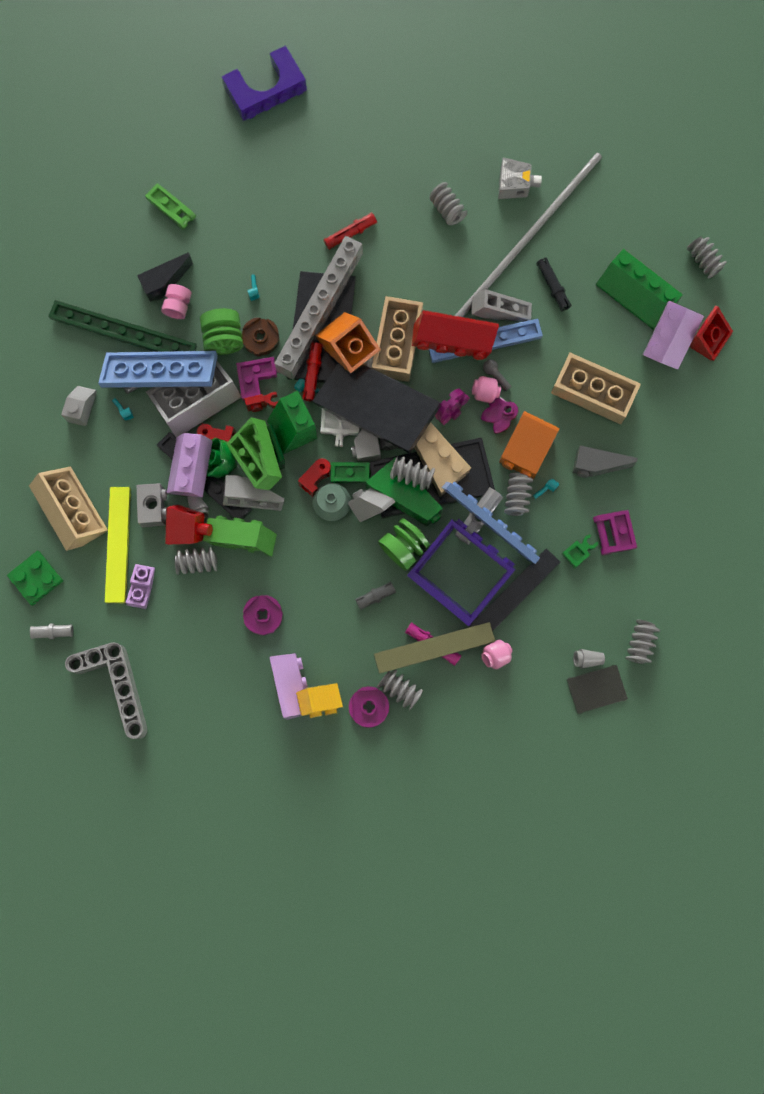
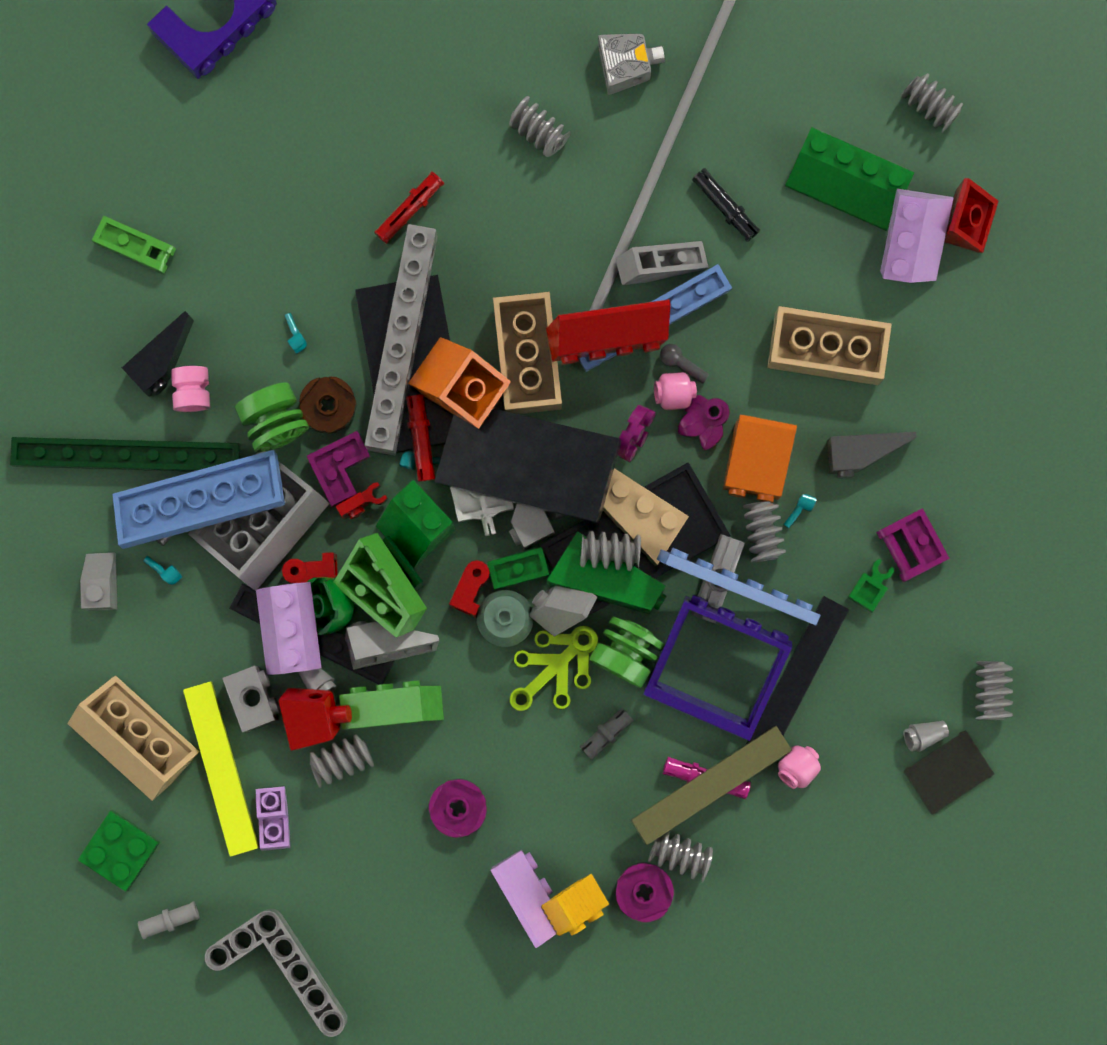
camera: 20 degrees left, 5 degrees up
(356, 542) = (557, 665): none -> lime plant

